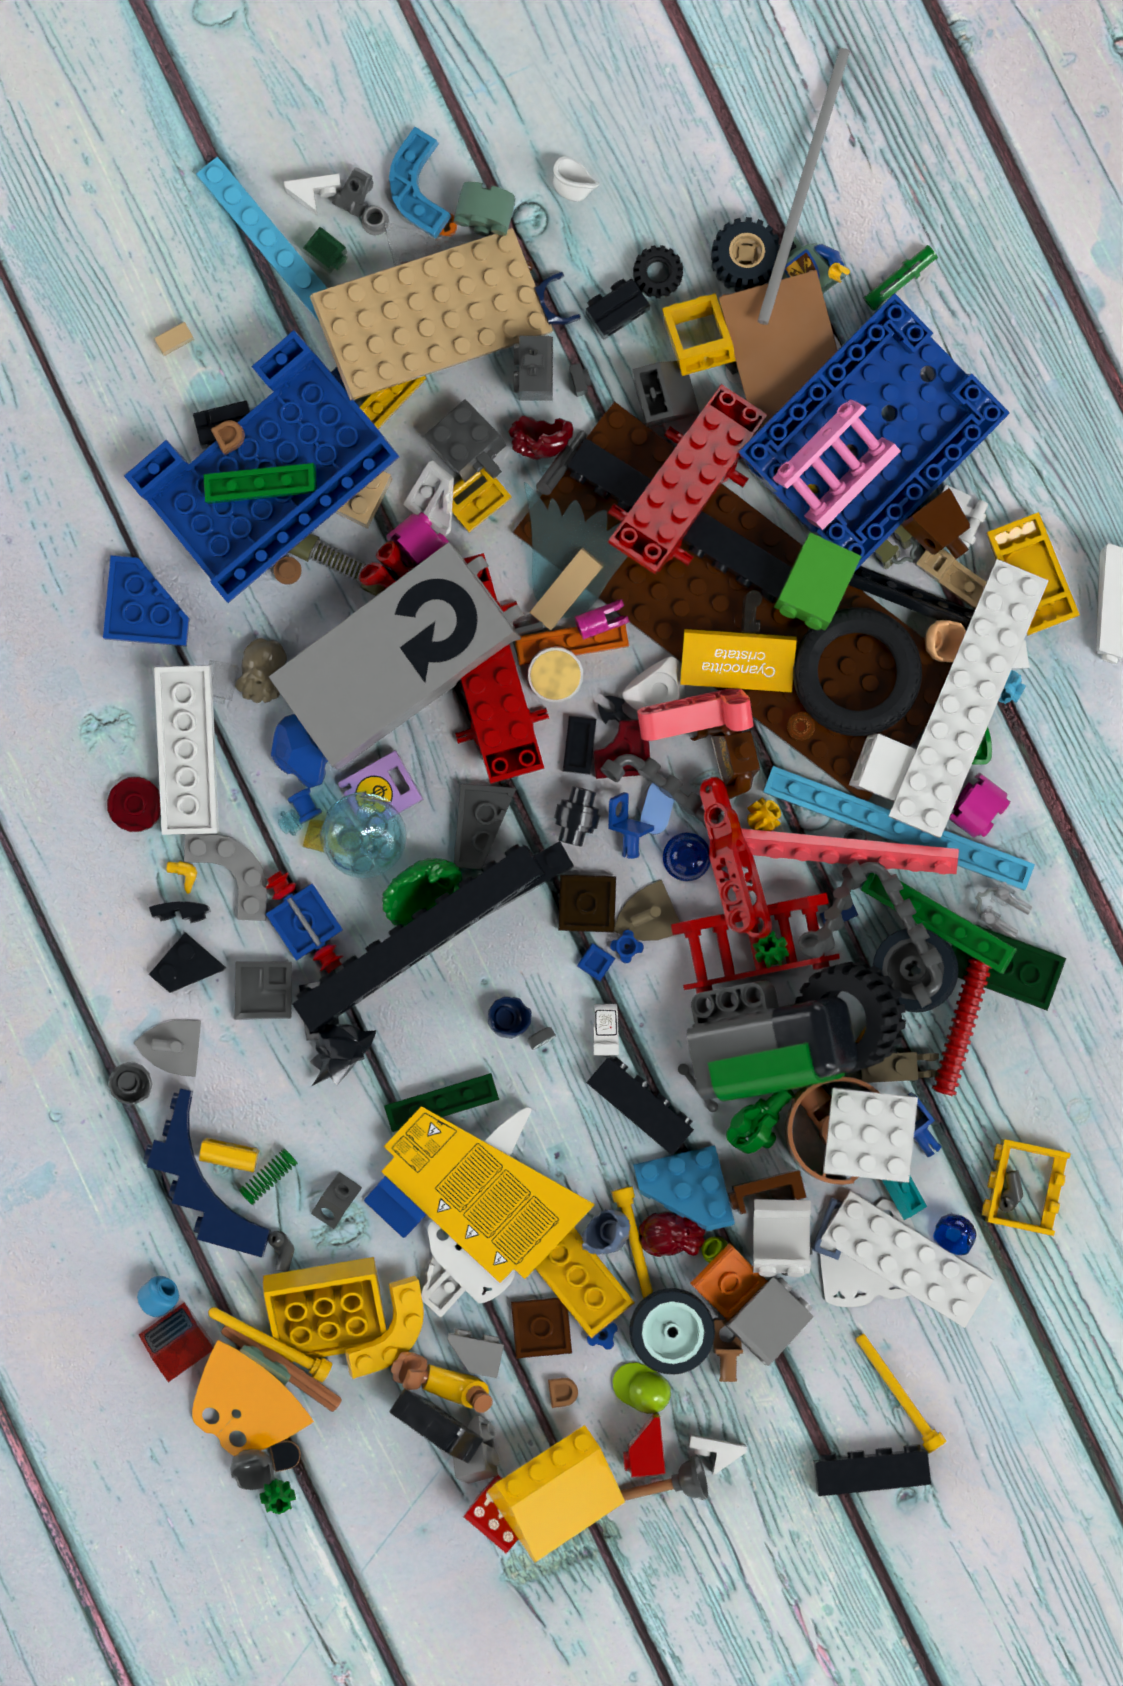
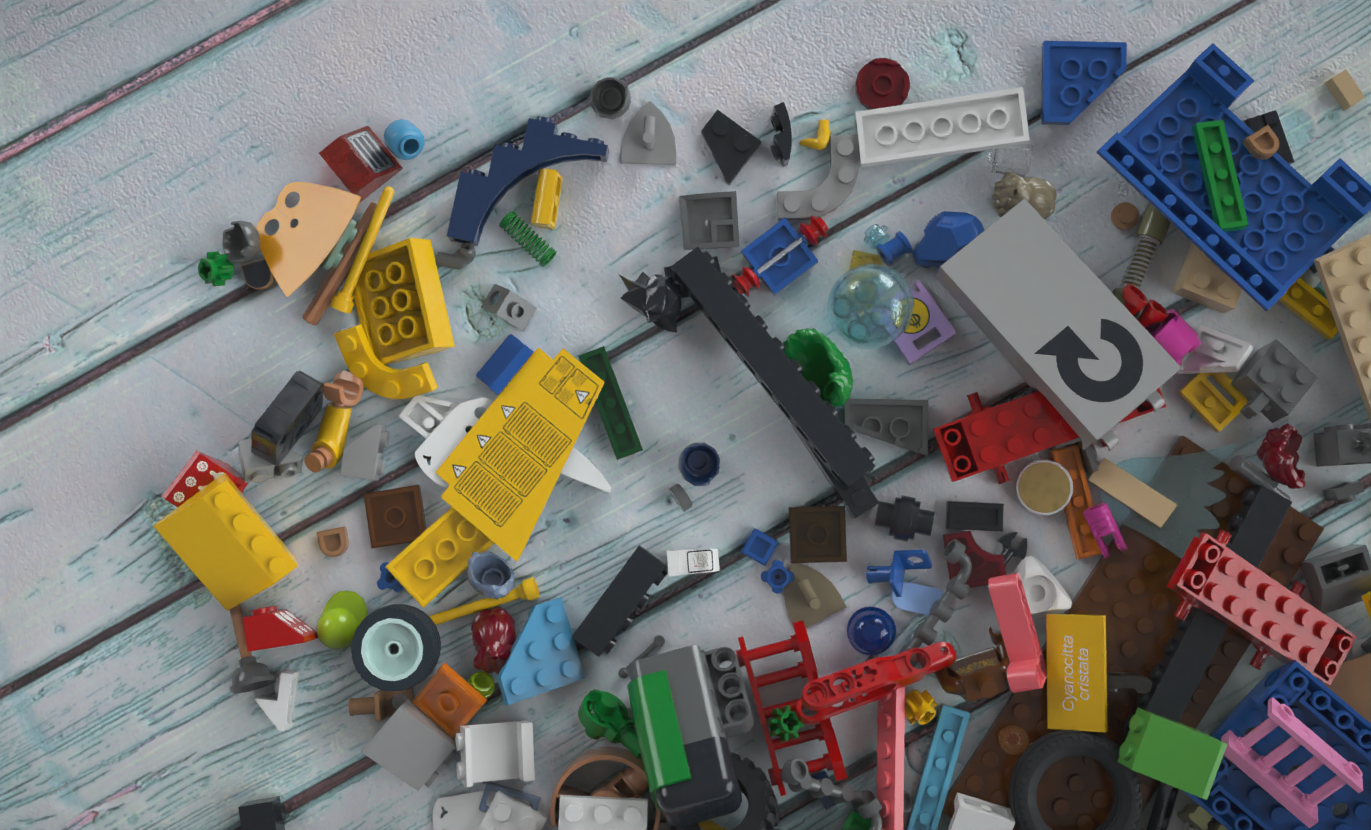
camera: 90 degrees right, 0 degrees up
(791, 1178) = (555, 756): reddish brown panel -> none

